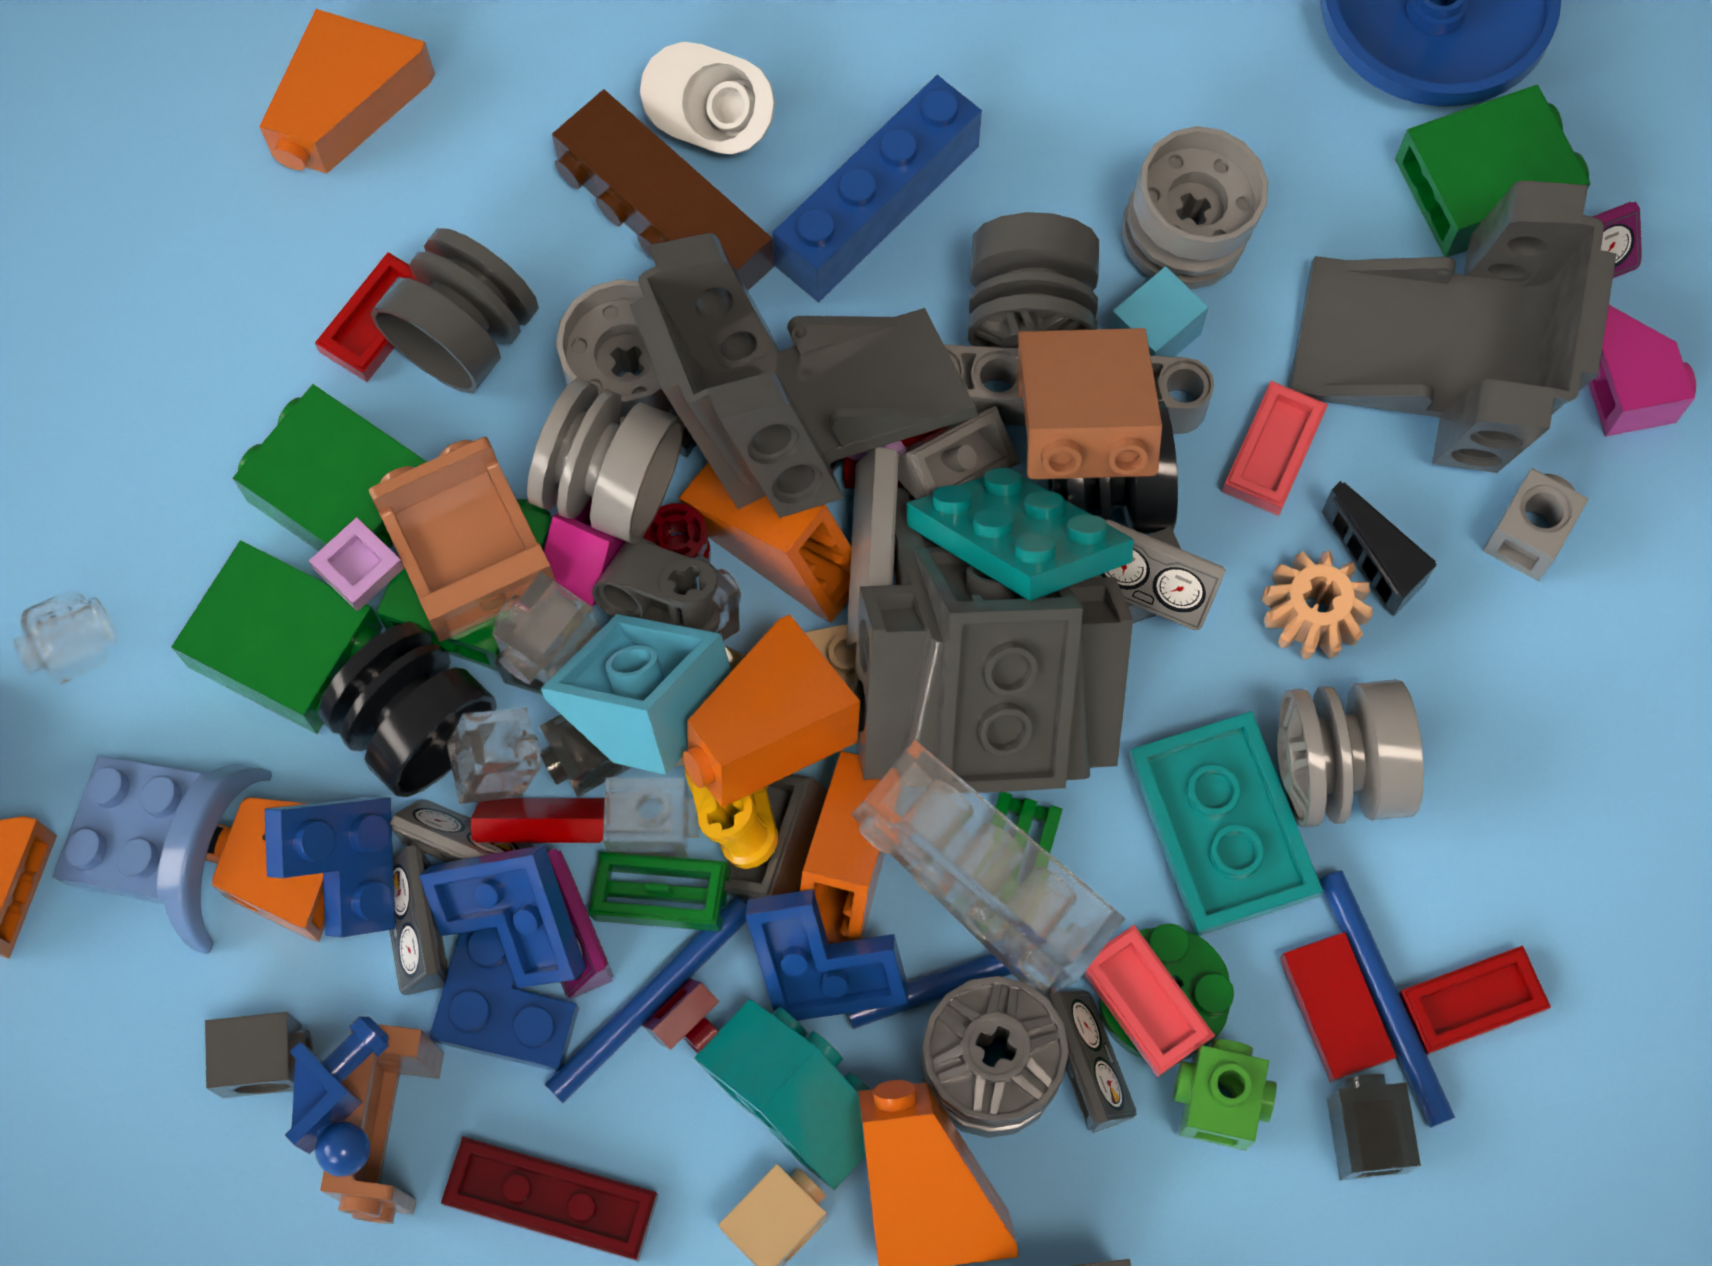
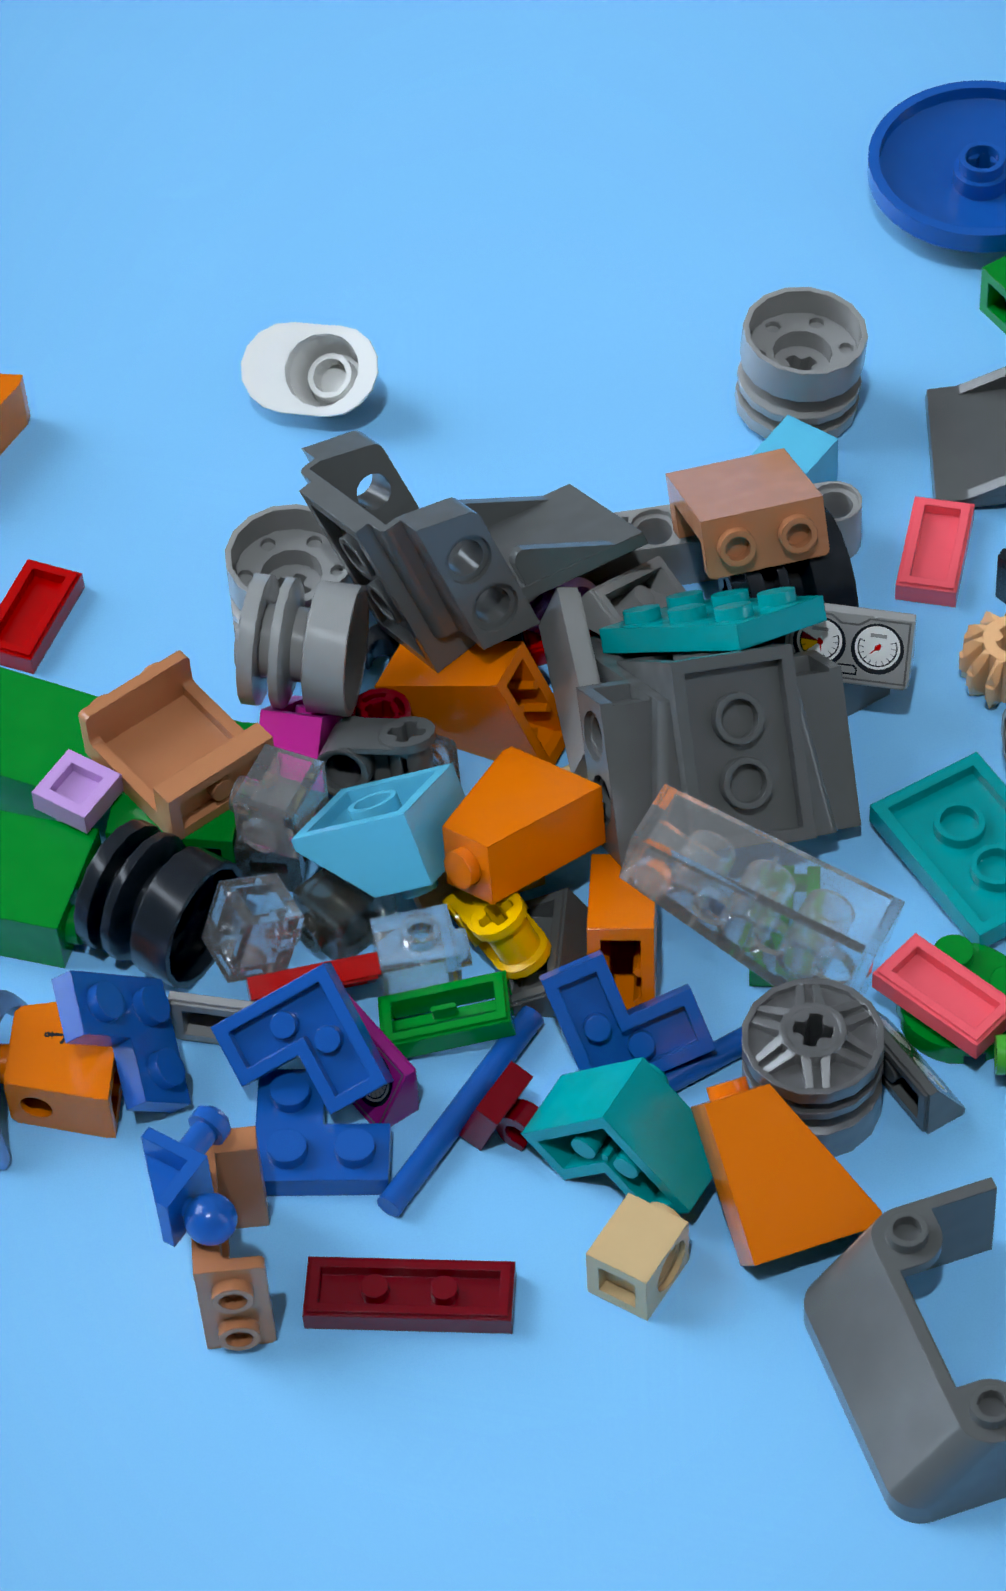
camera: 10 degrees left, 20 degrees down
(252, 1054) = (85, 1227): dark grey brick -> none
(415, 940) = (209, 1073): dark grey slope -> none
(455, 310) = (113, 579): dark grey wheel -> none
(652, 187) = (247, 445): reddish brown brick -> none
(877, 188) = (495, 409): blue brick -> none
(1031, 277) = (658, 430): dark grey wheel -> none

